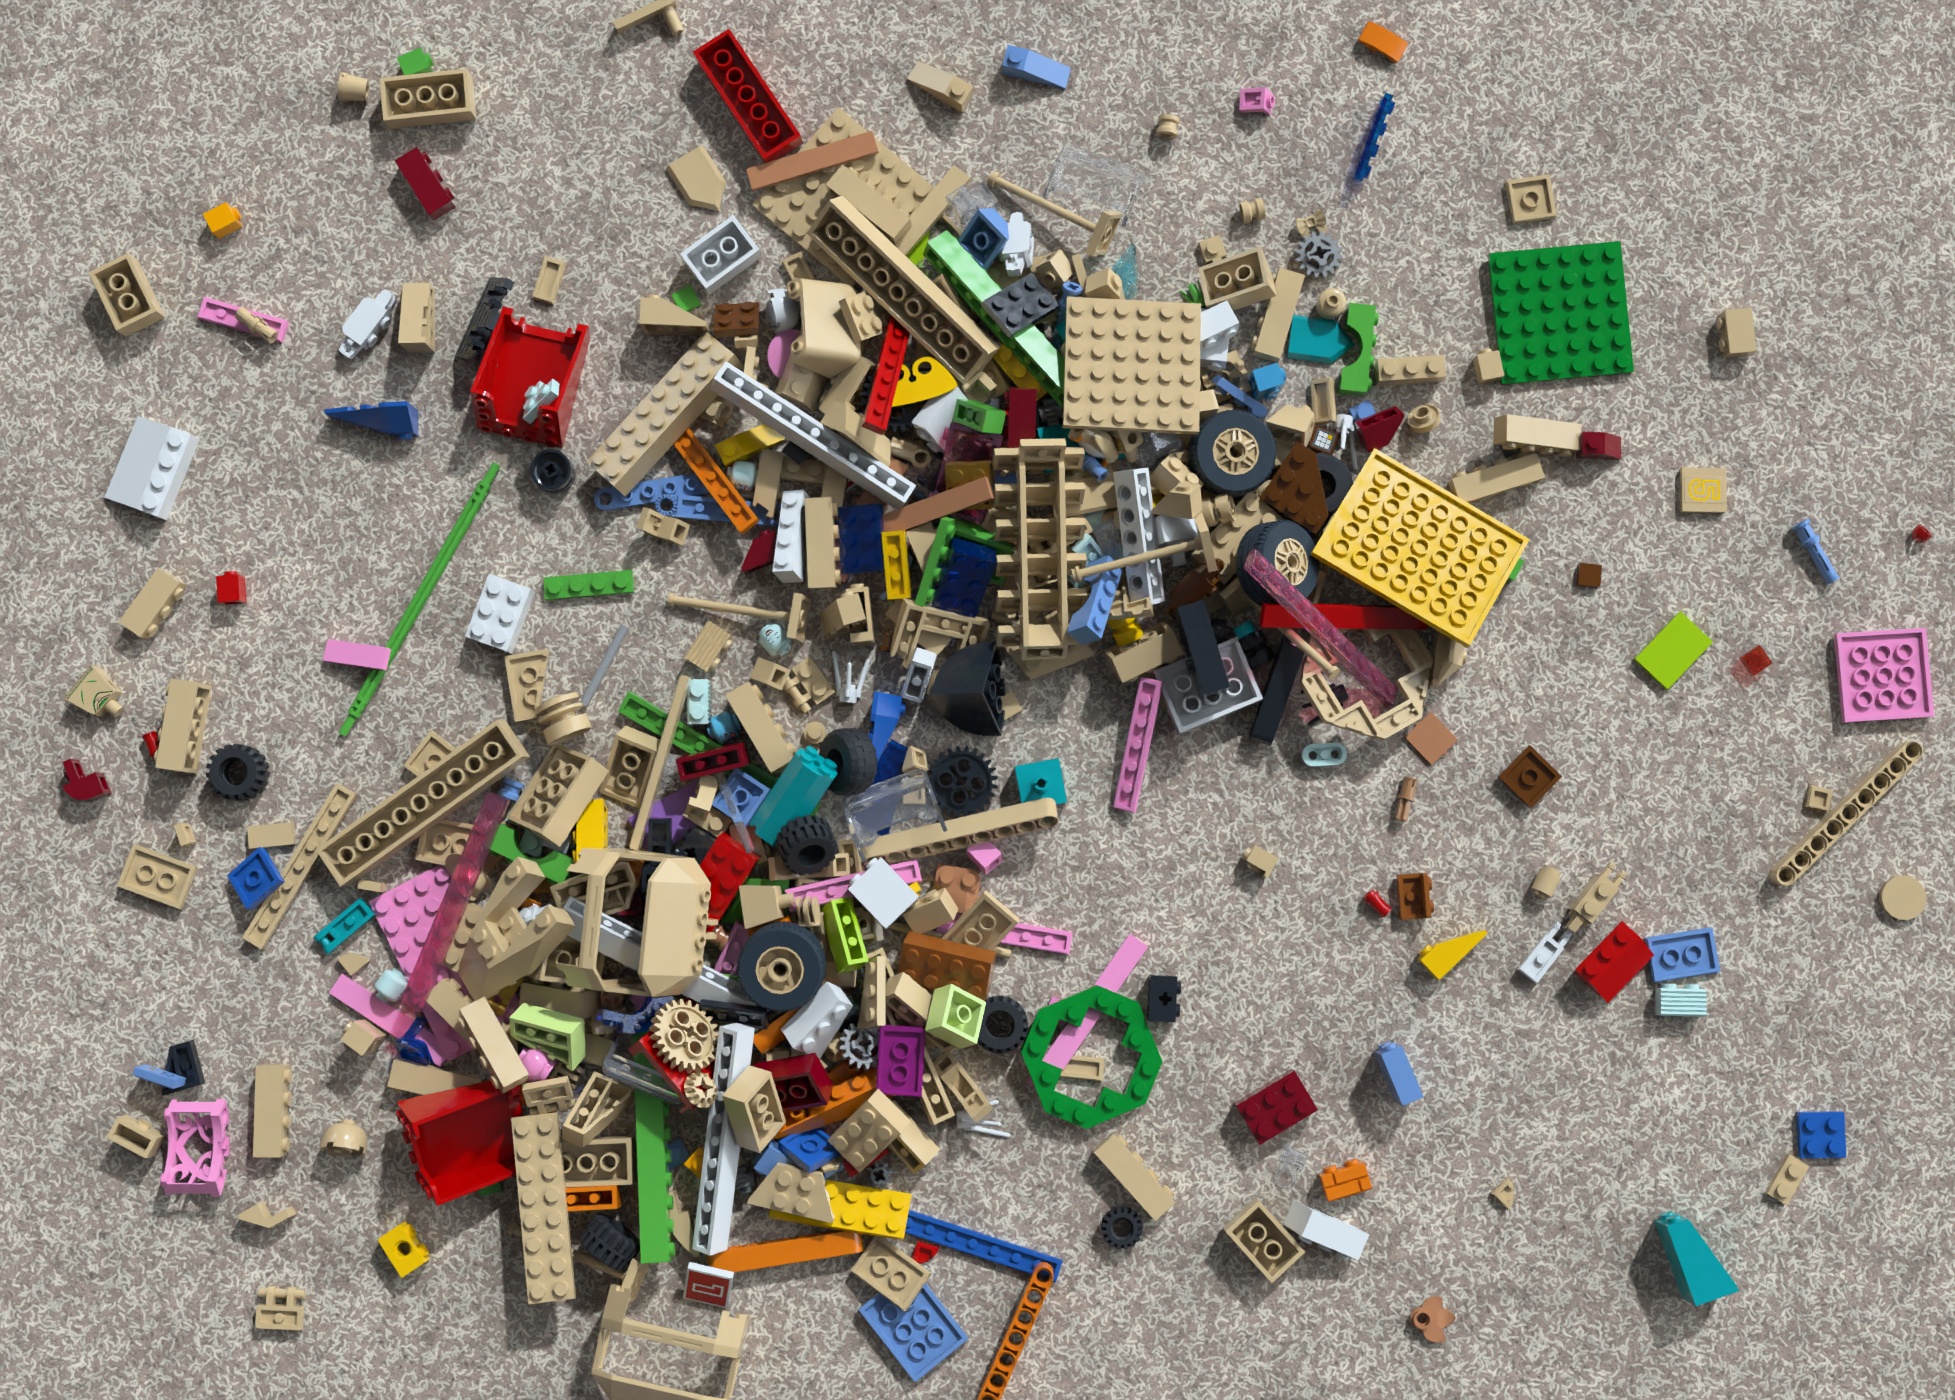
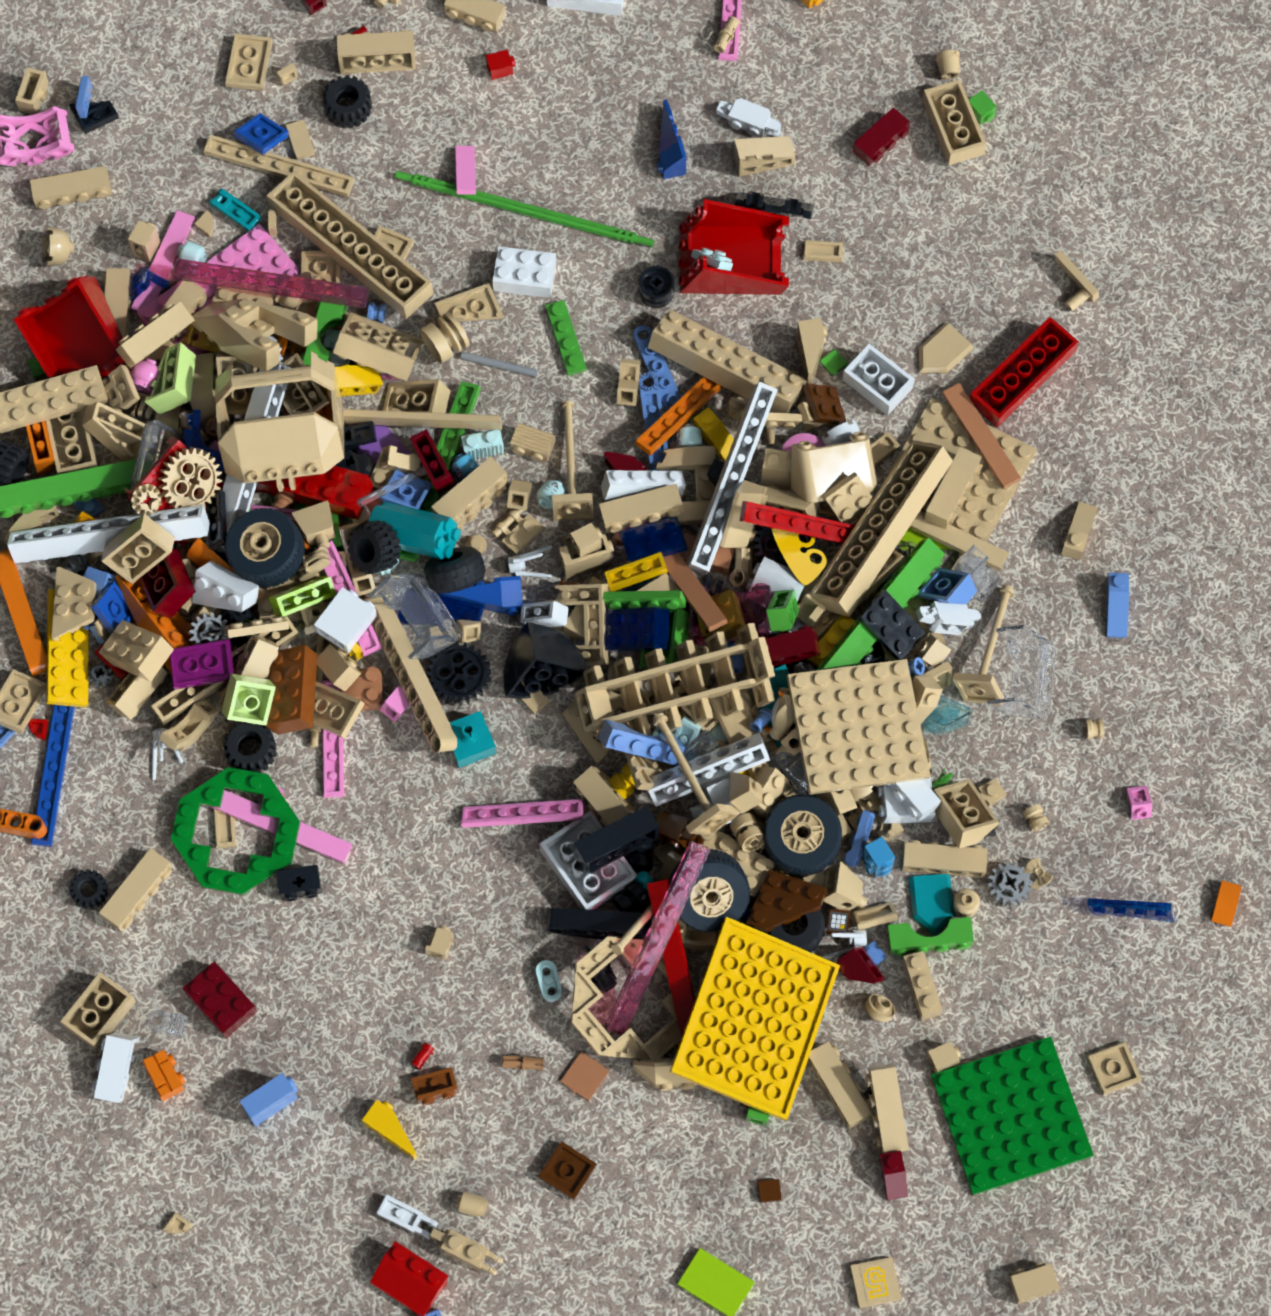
camera: 75 degrees right, 15 degrees down
(1435, 1319) = (52, 1183): nougat plate -> none

